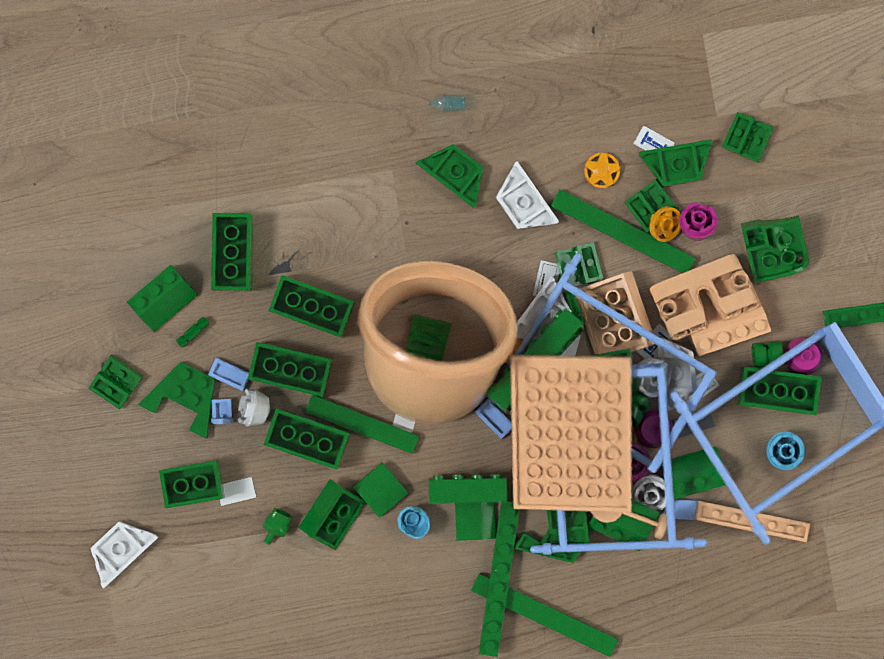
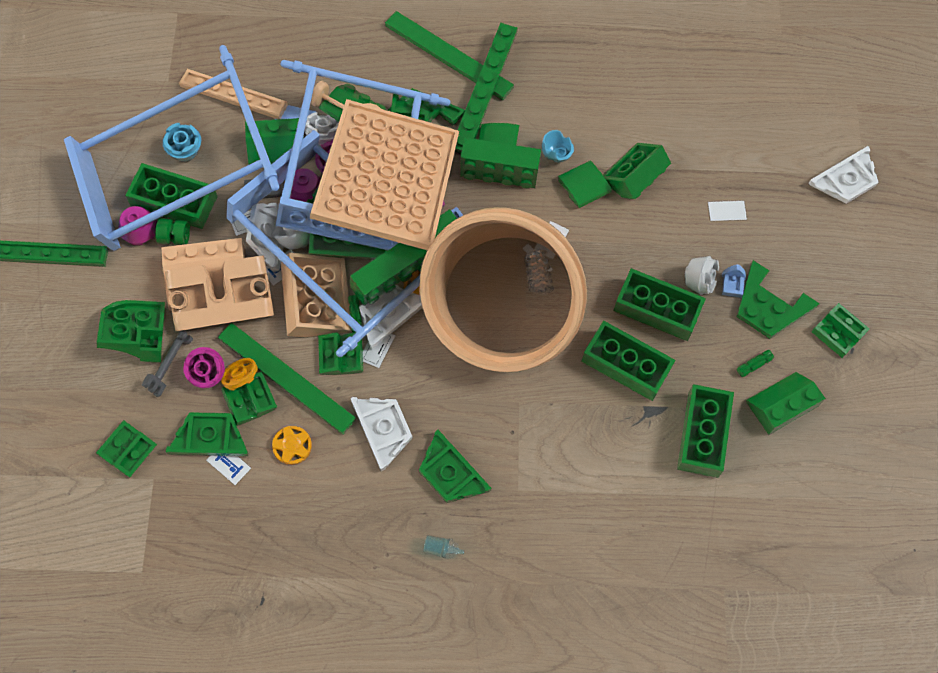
camera: 175 degrees left, 20 degrees down
(191, 484) = (772, 218): green brick -> none
(229, 374) = (721, 316): light blue tile -> none
(276, 524) = (691, 172): green piece -> none
(306, 438) = (651, 237): green brick -> none
(362, 424) = (594, 246): green tile -> none
(427, 338) = (511, 313): green slope -> none
(739, 199) = (153, 382): none -> dark grey hinge

